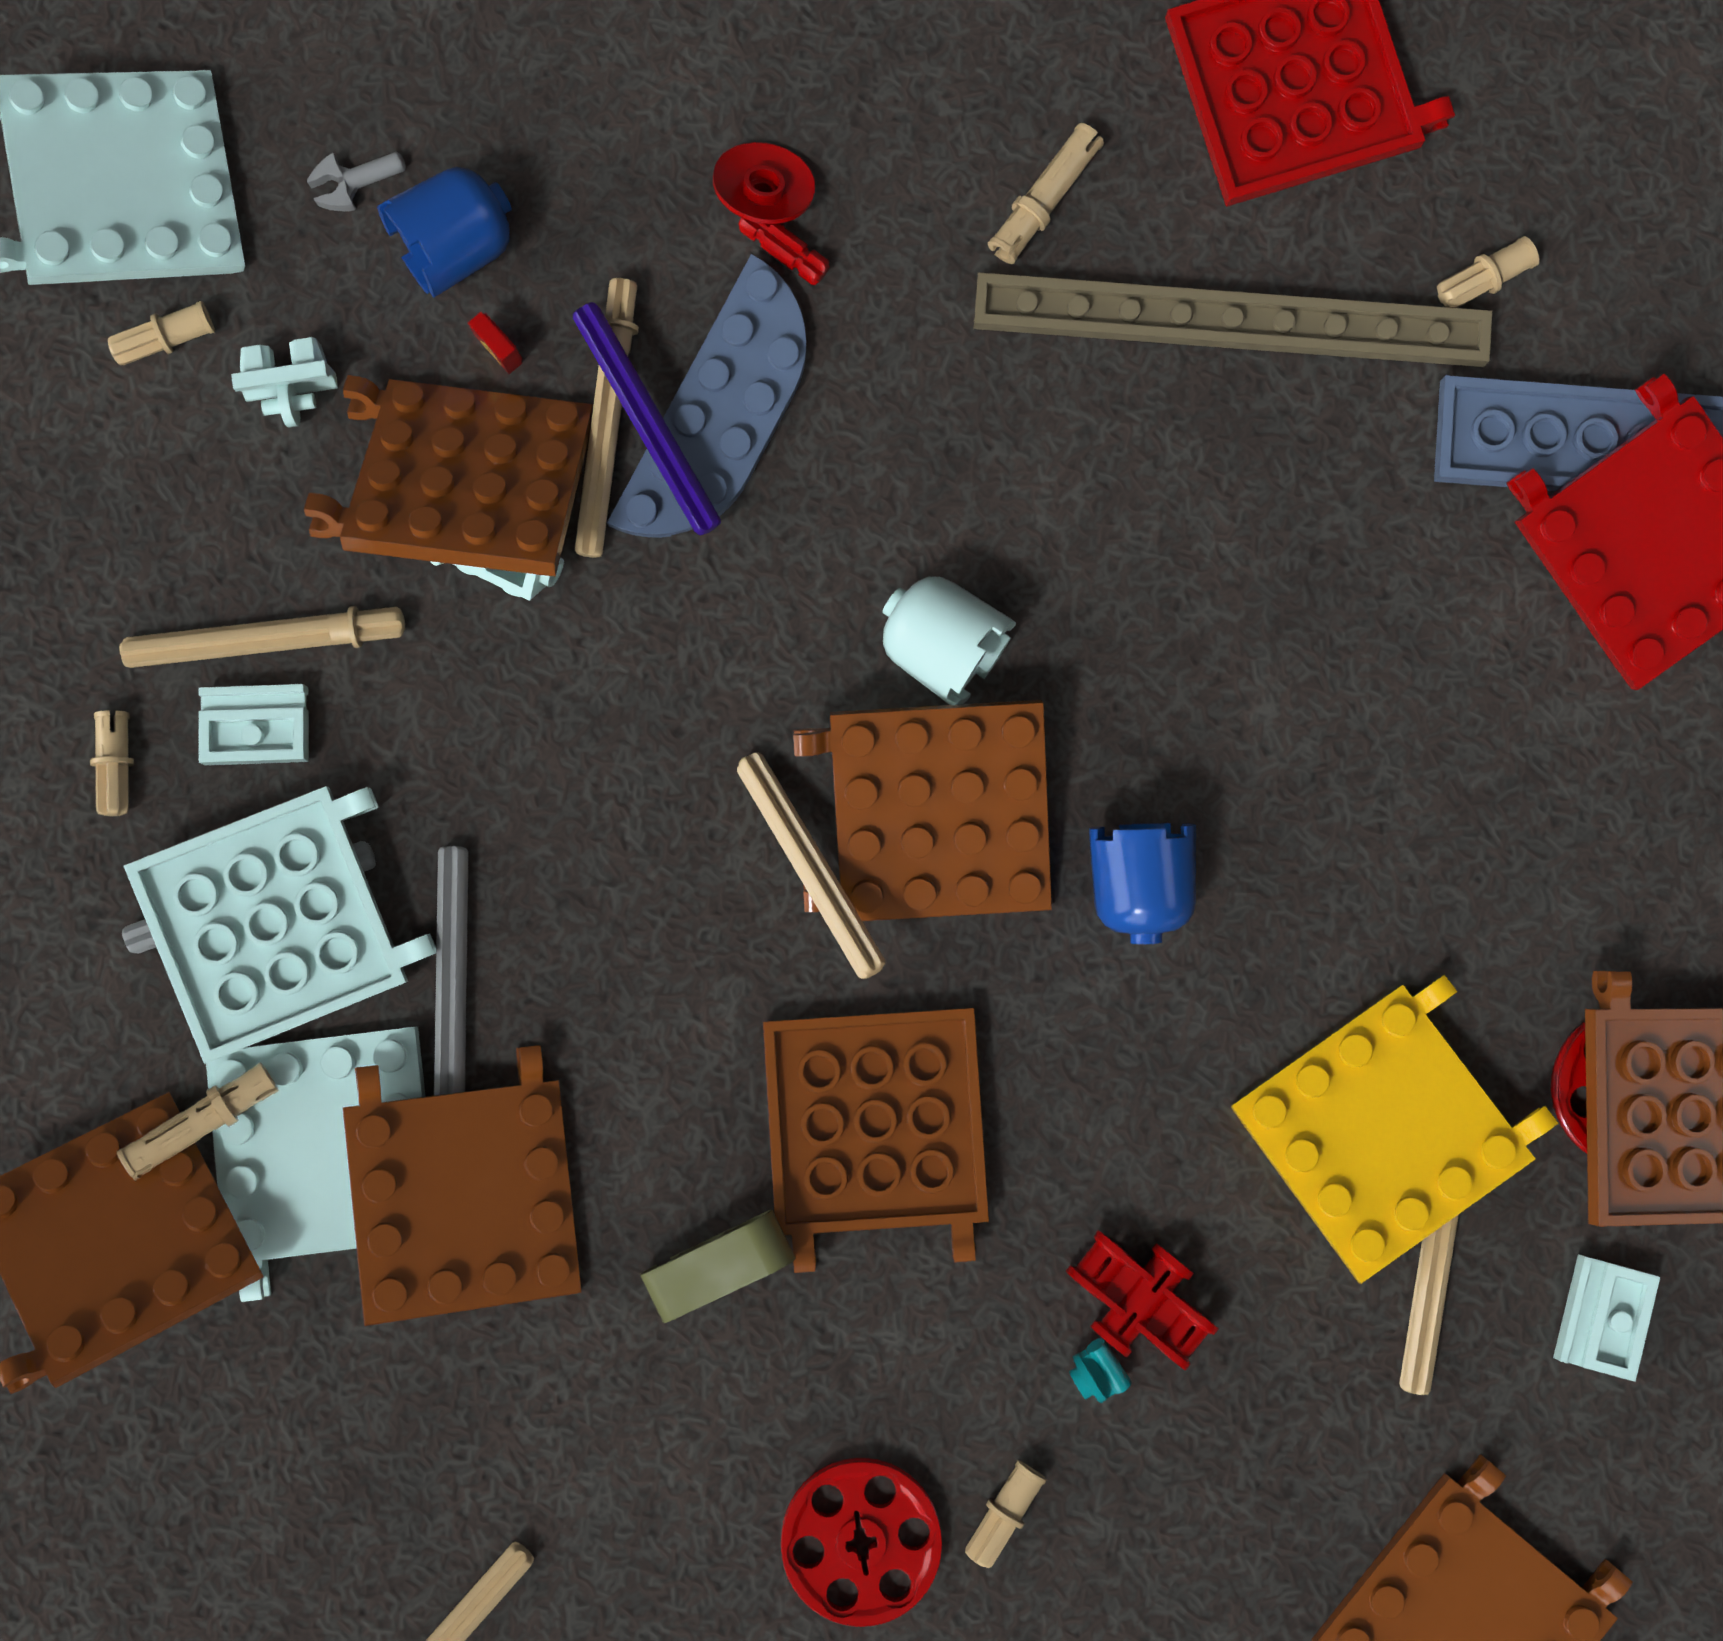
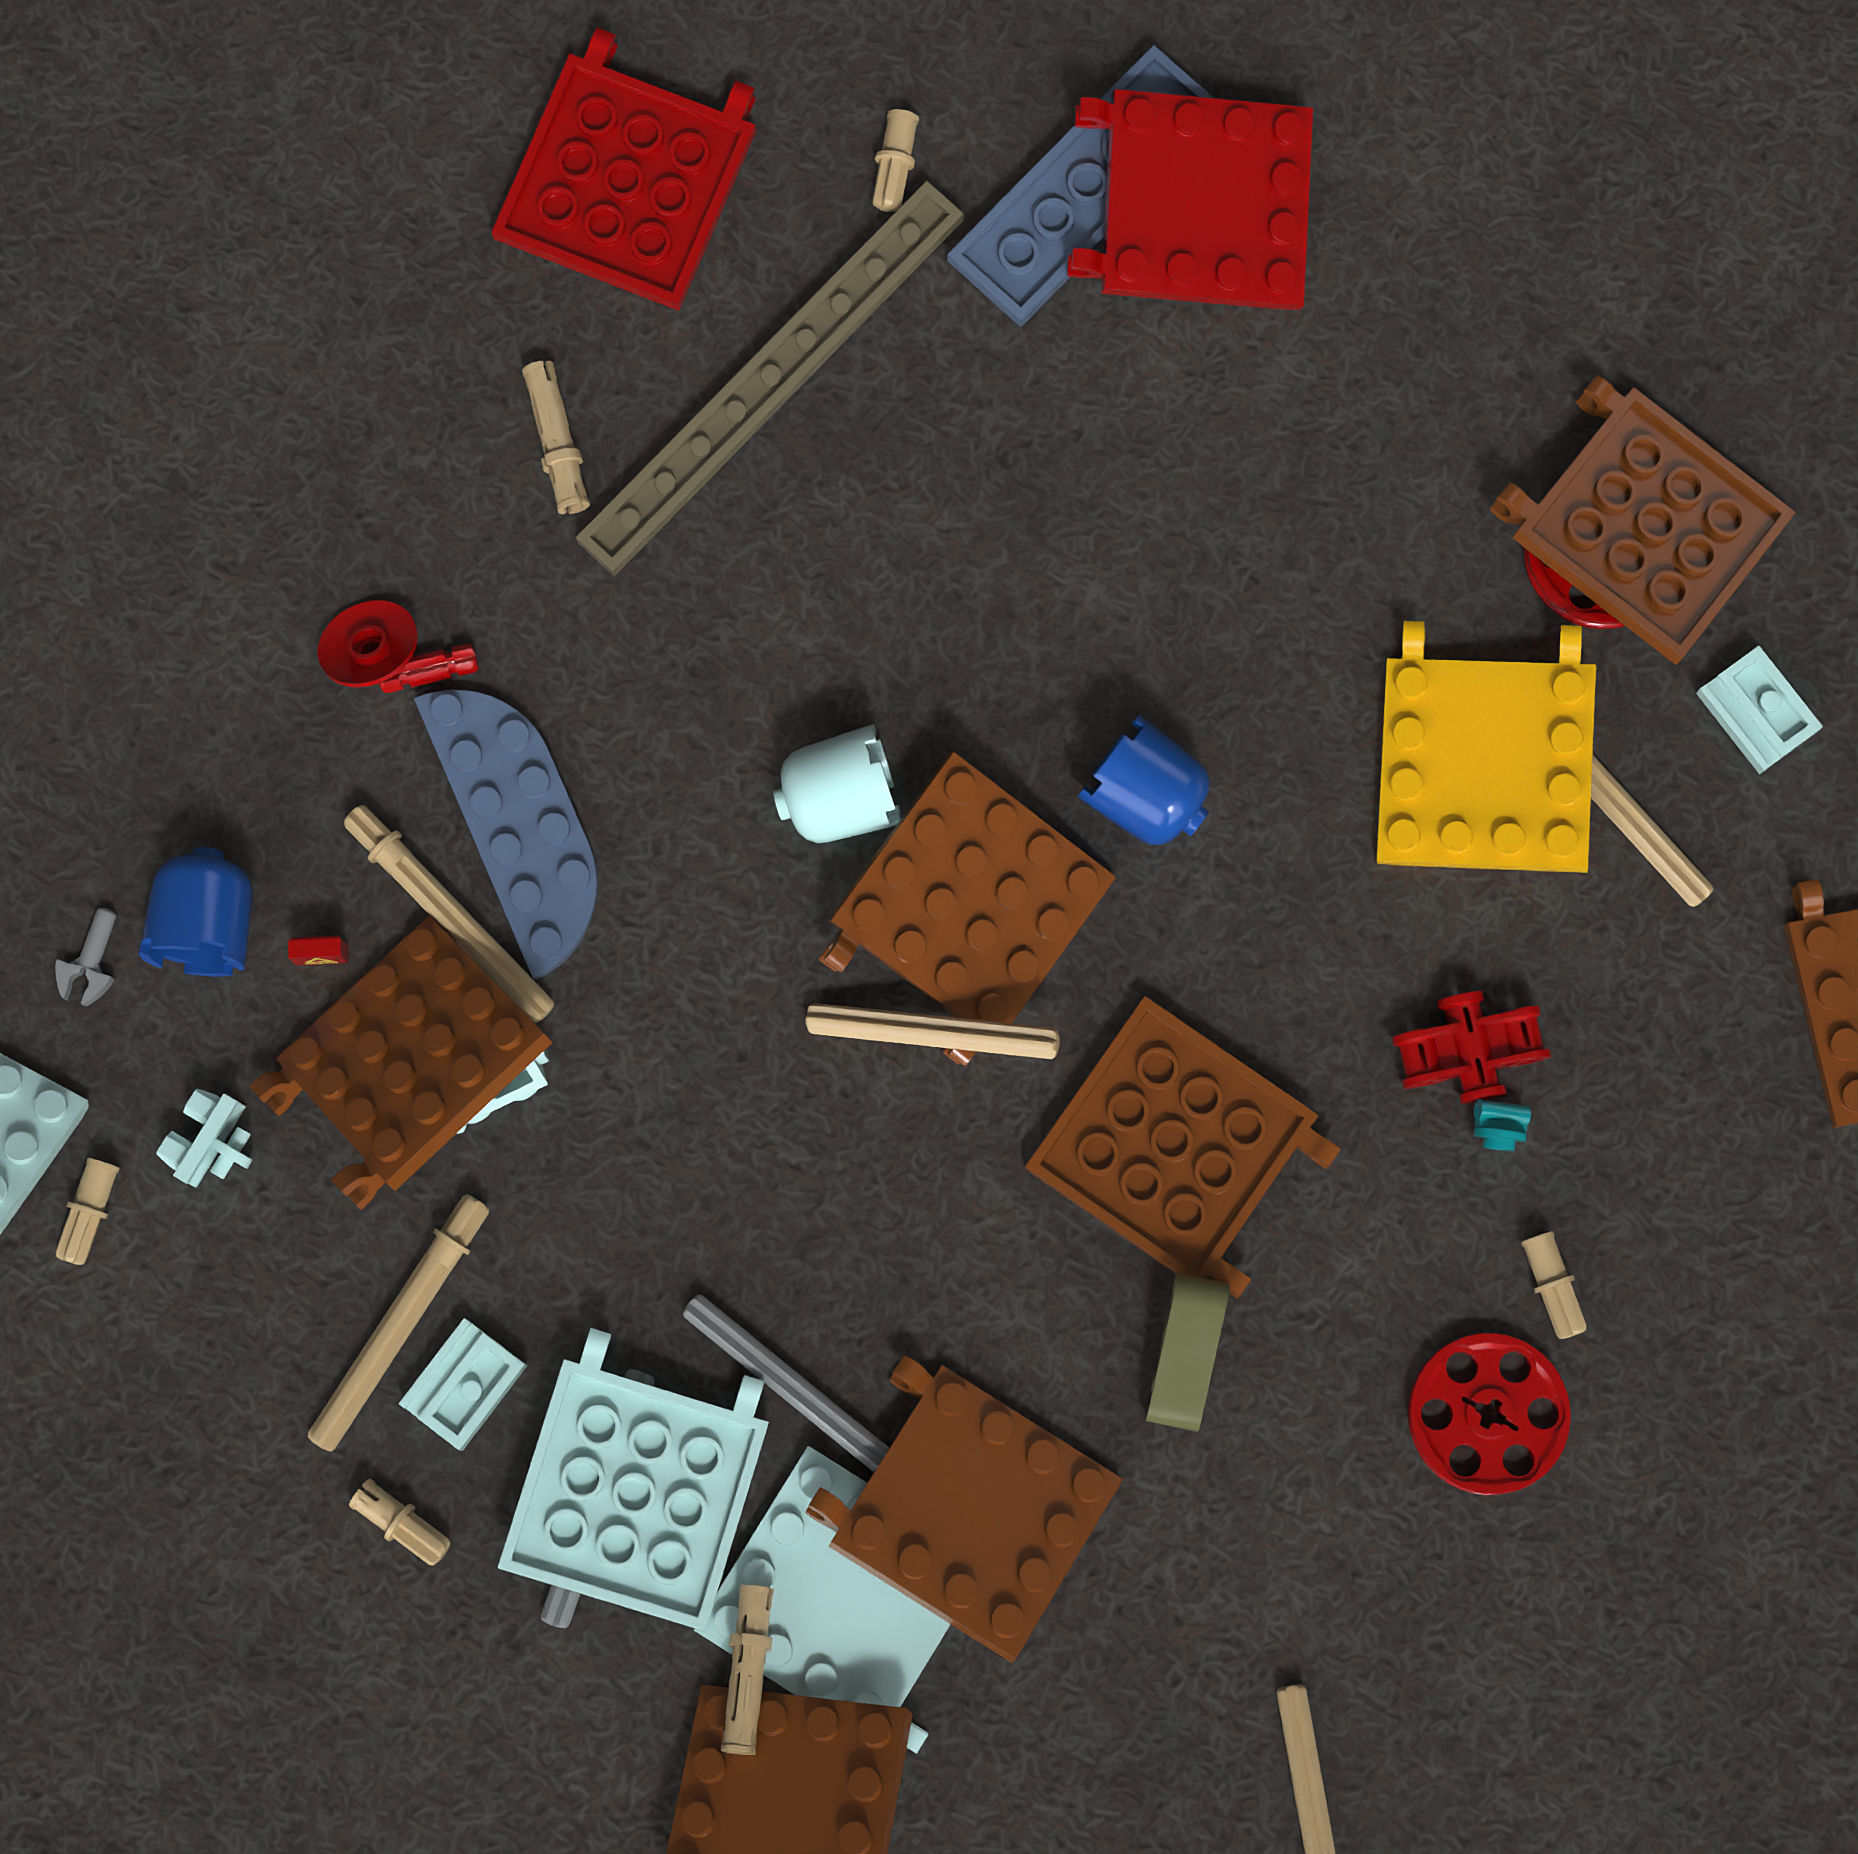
camera: 50 degrees left, 5 degrees down
(646, 419) = (480, 879): dark purple axle -> none

